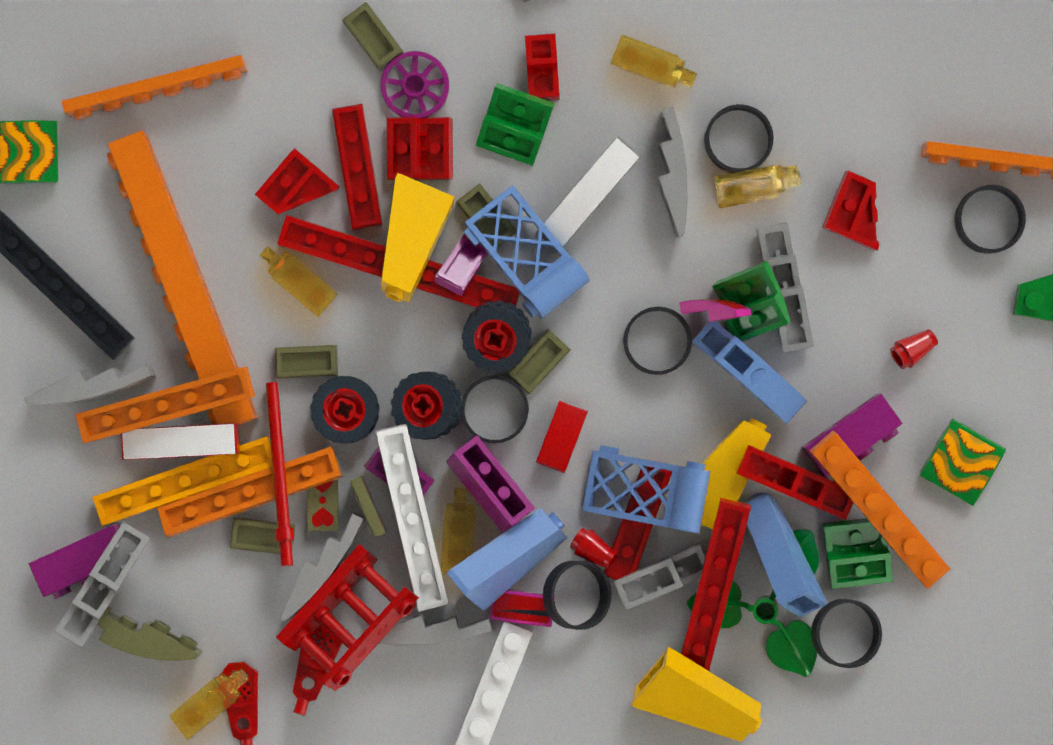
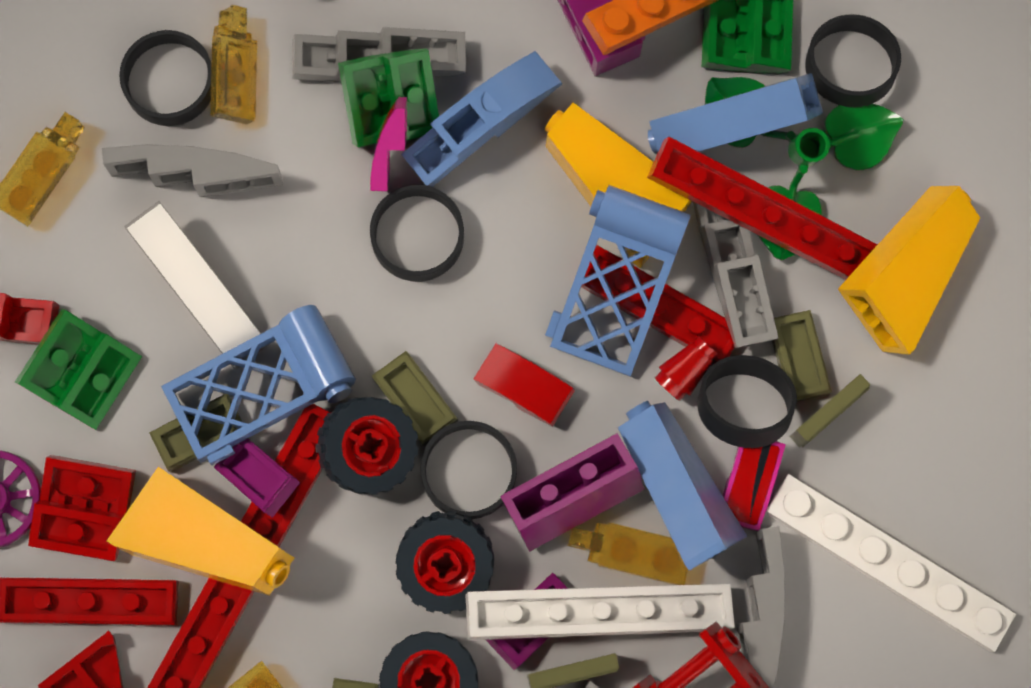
camera: 90 degrees left, 10 degrees down
(582, 655) = (830, 411): none -> olive tile
(620, 628) = (800, 355): none -> olive tile
(794, 482) = (641, 85): red slope -> none

